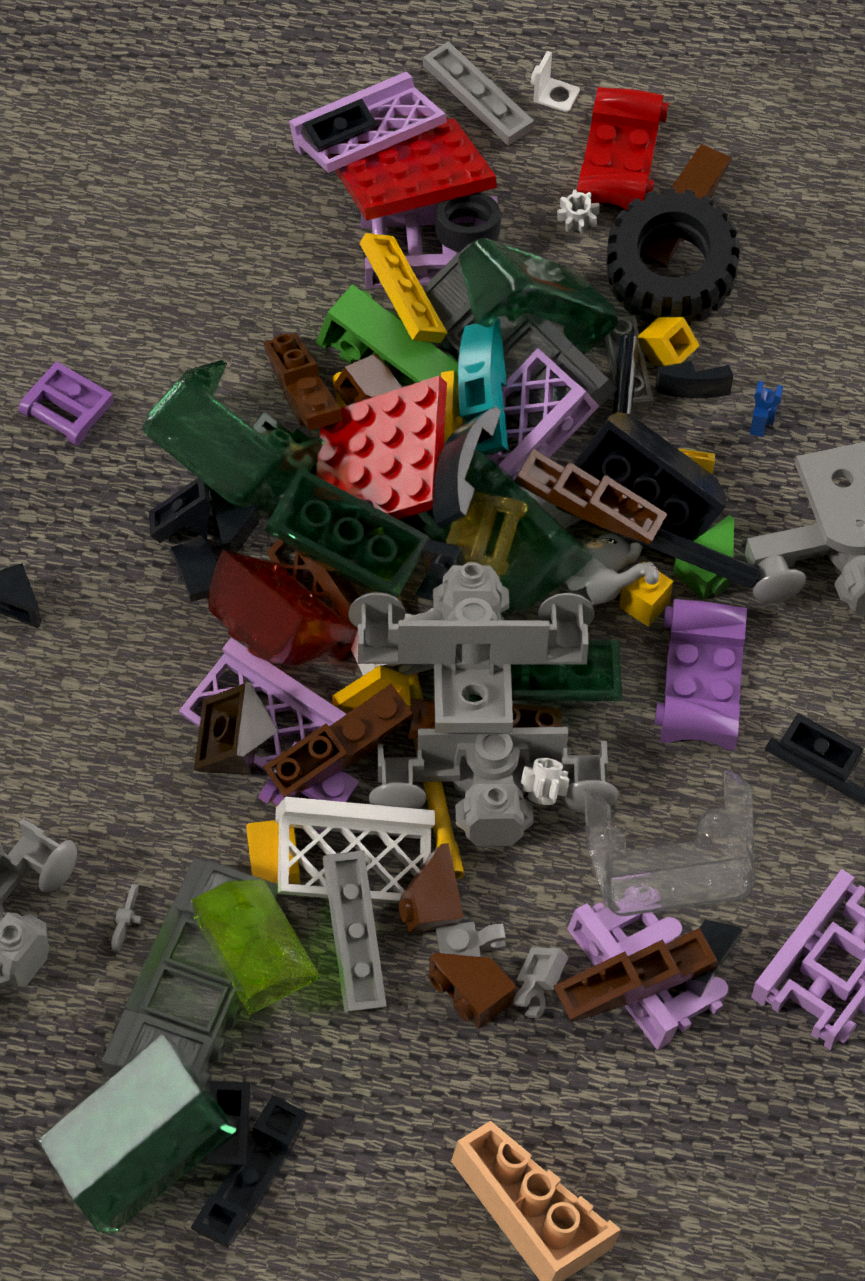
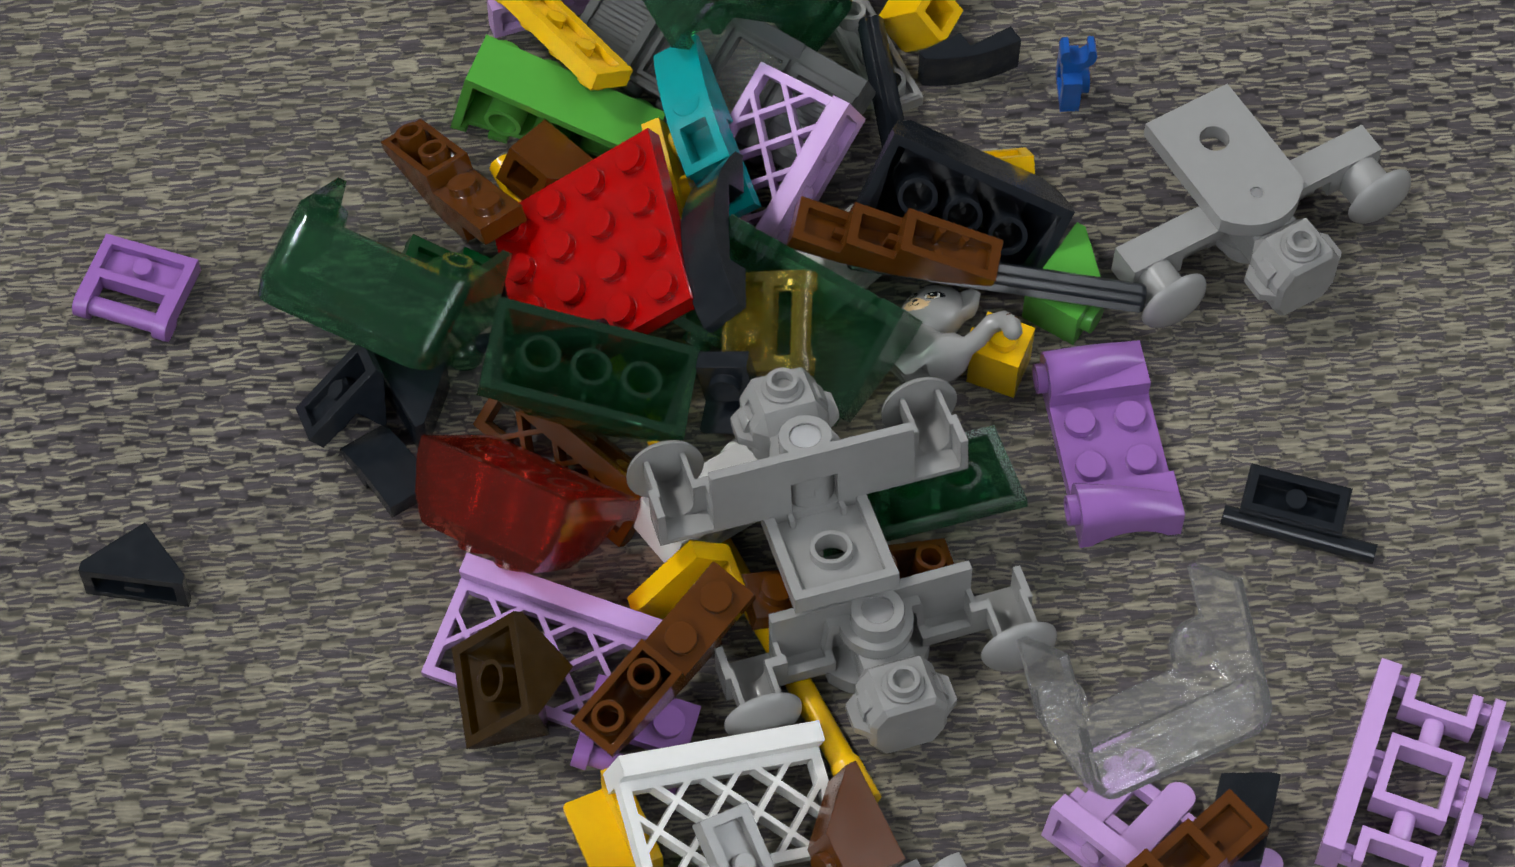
camera: 15 degrees left, 0 degrees up
(545, 781) = (958, 641): white gear -> none

